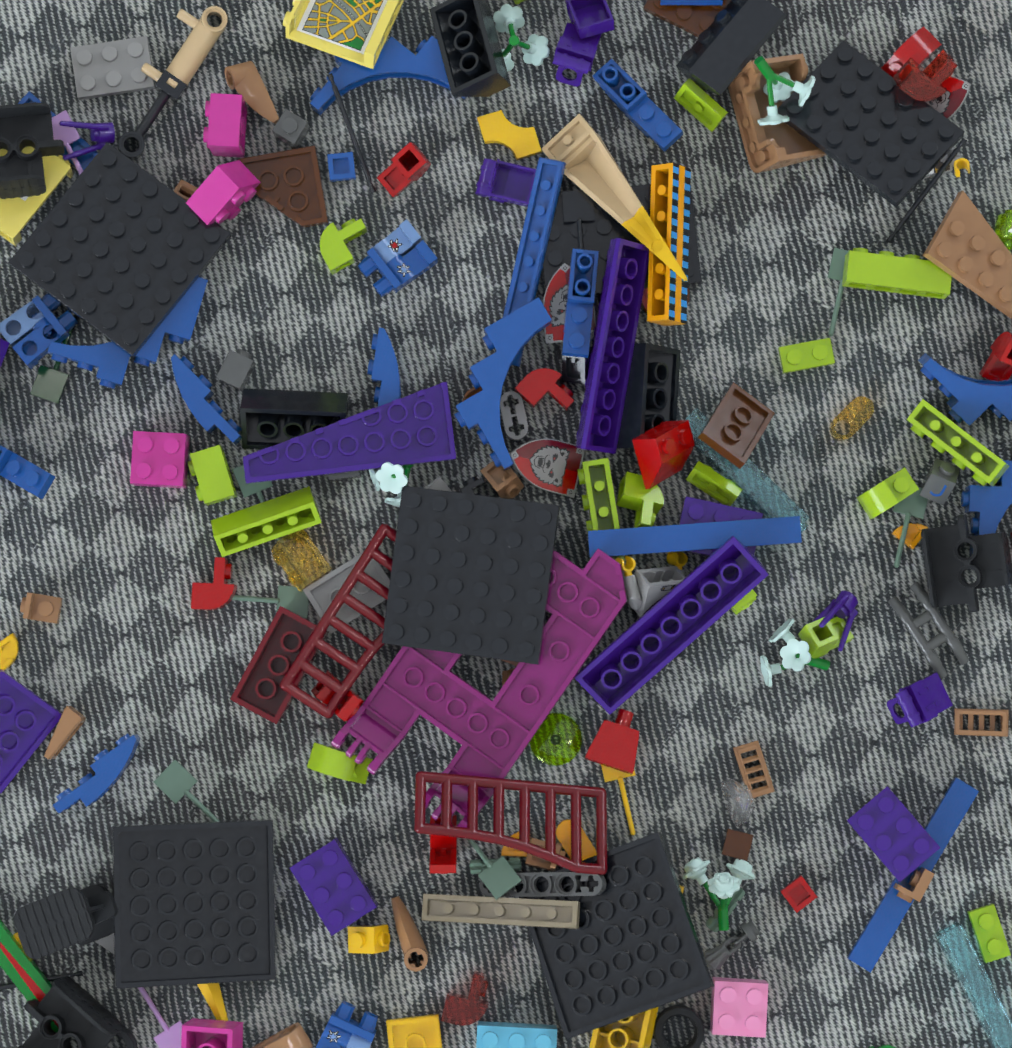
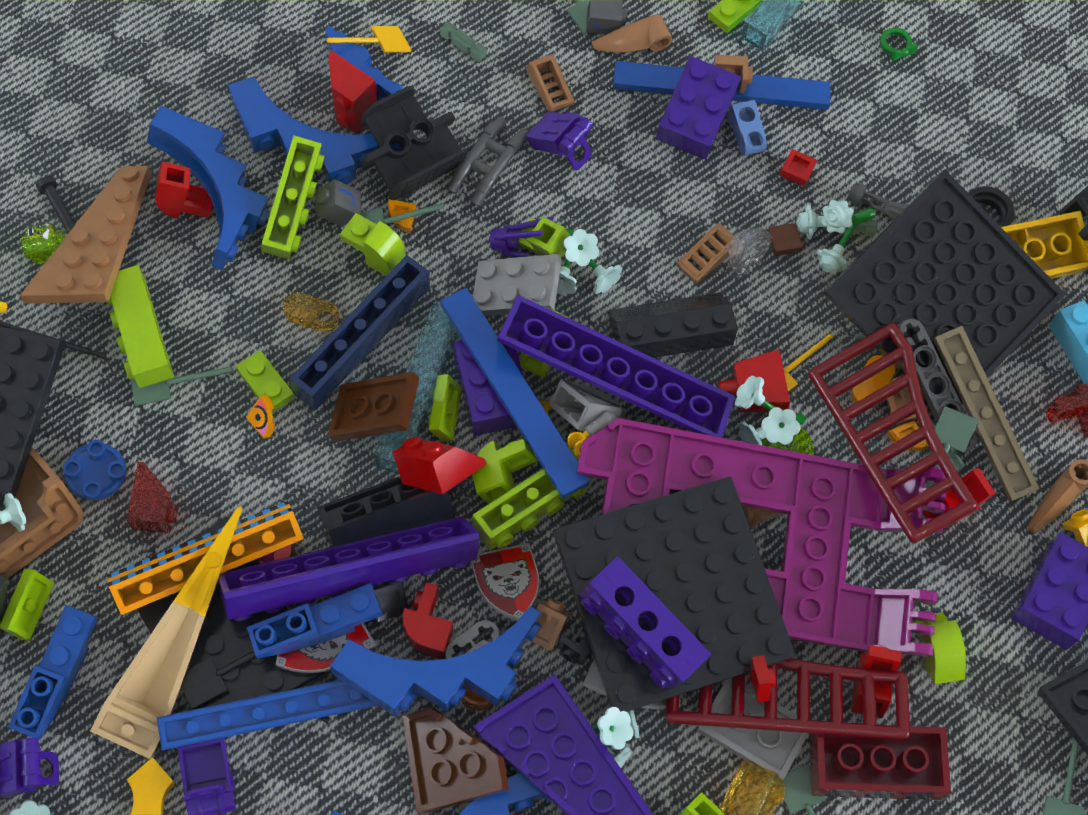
camera: 125 degrees left, 20 degrees down
(375, 606) = (762, 678): none -> red plate
(408, 534) = (660, 625): none -> dark purple brick
(432, 354) = (449, 763): none -> reddish brown plate
(565, 731) = (776, 427): none -> light aqua plant
(702, 704) = (676, 325): none -> black slope
(739, 1007) = (922, 162): bright pink brick -> none
(741, 226) = (150, 503): none -> clear red slope
(774, 338) = (261, 416): none -> light orange tile
(788, 195) = (95, 471): none -> blue dish
(793, 591) = (503, 279): none -> light grey plate
(810, 446) = (360, 332): none -> dark blue brick
(855, 870) = (747, 127): none -> medium blue leg
(994, 822) = (640, 35): none -> medium nougat piece

